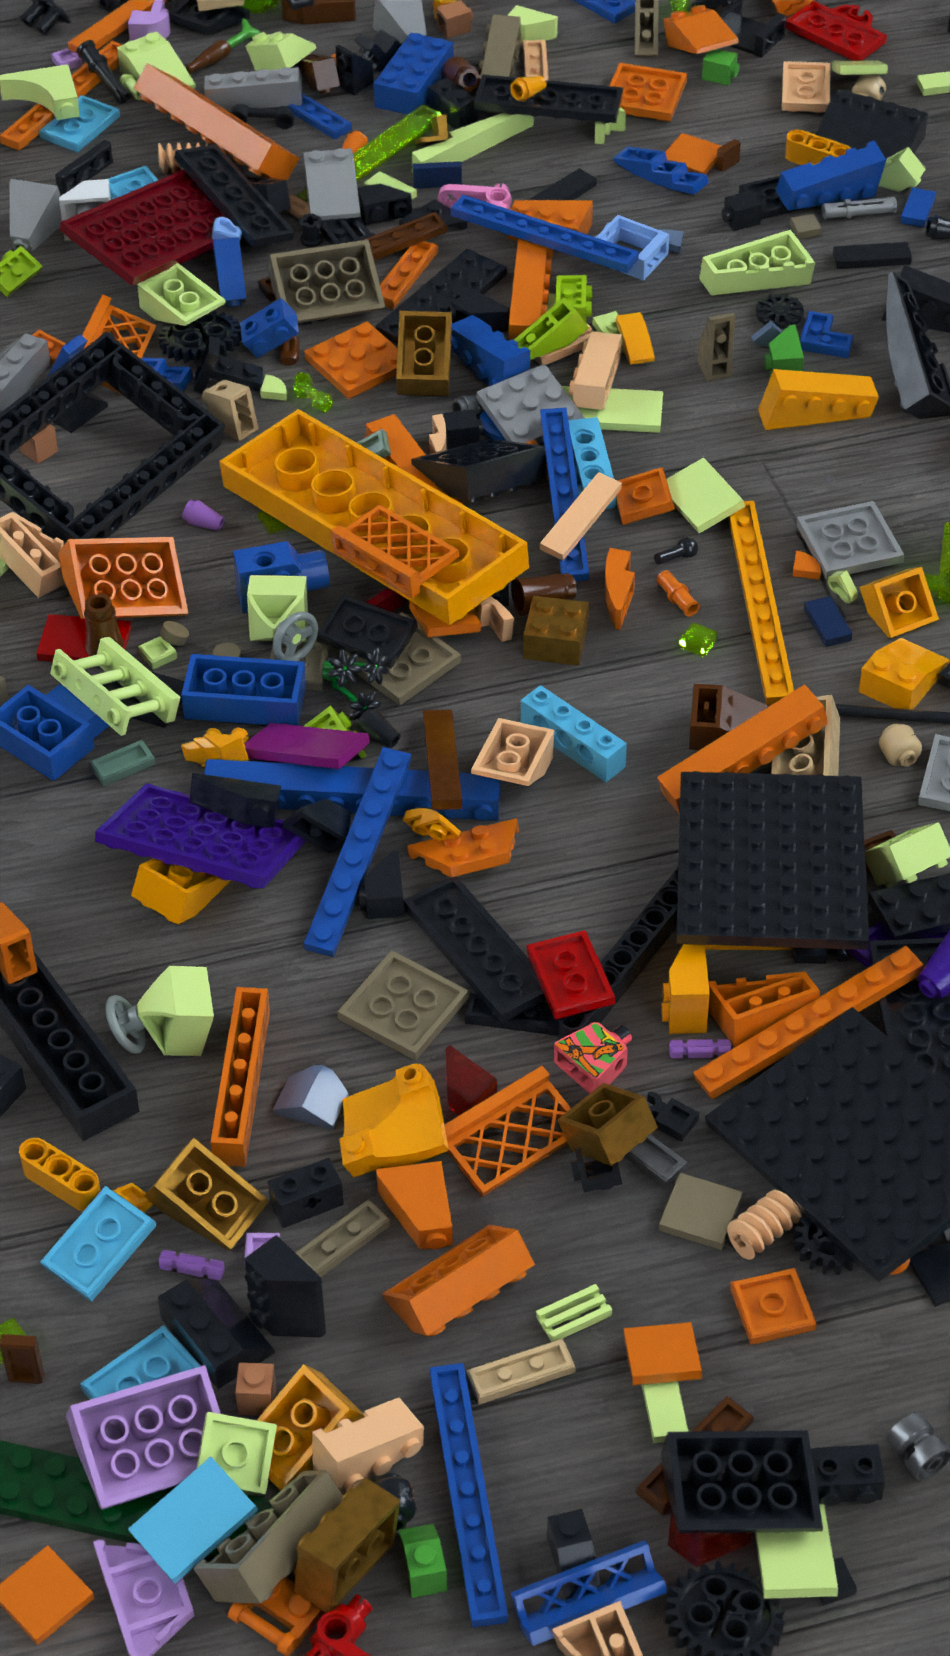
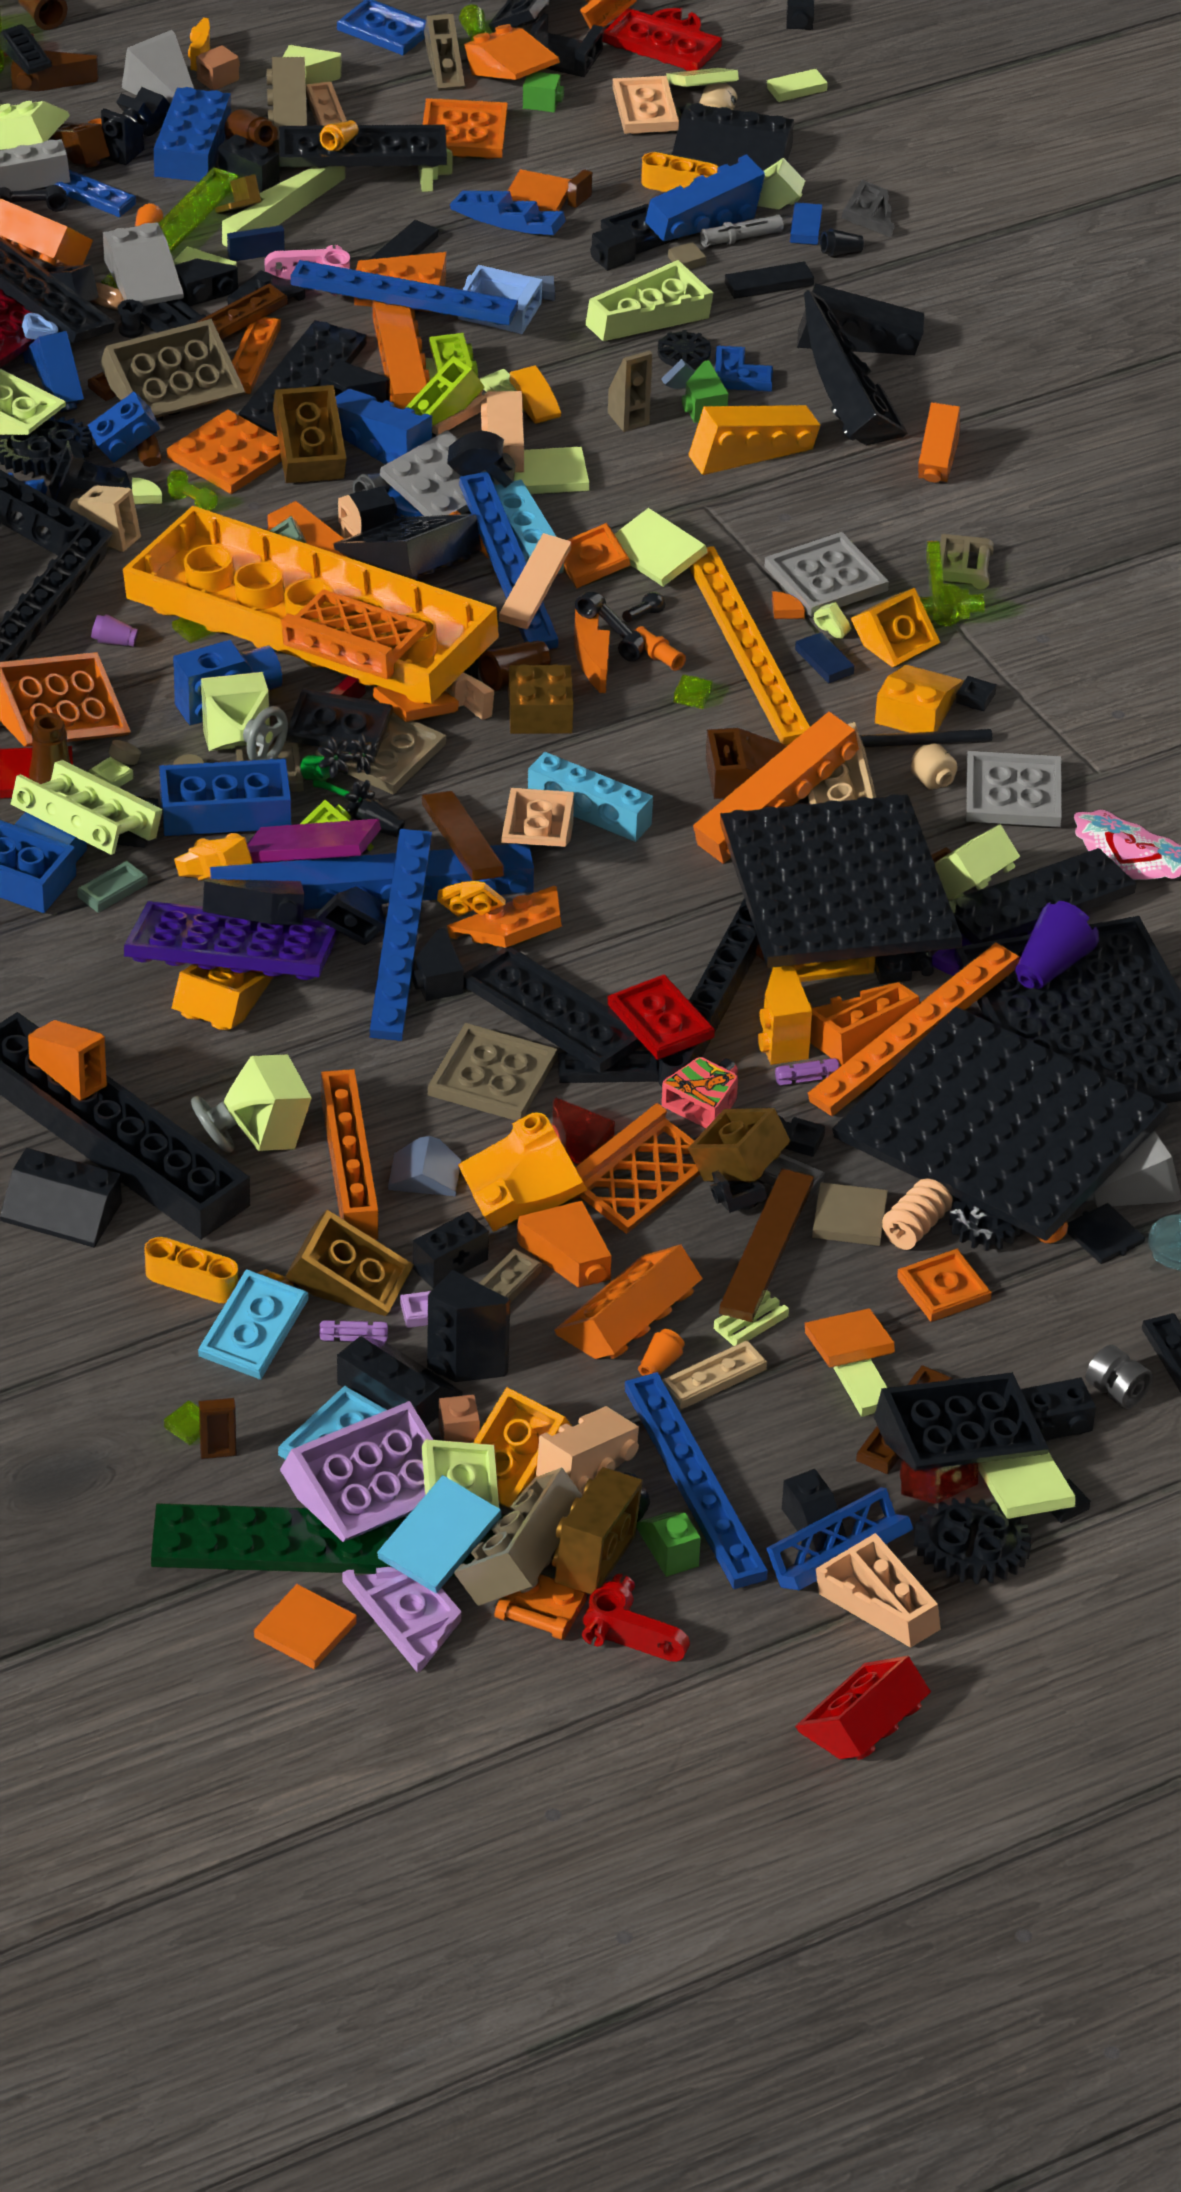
camera: 15 degrees left, 5 degrees down
(474, 1340) = (661, 1352): none -> orange cone
(563, 389) = (481, 452): none -> black brick
(607, 1237) = (766, 1245): none -> reddish brown tile
(655, 586) = (591, 603): none -> black bar

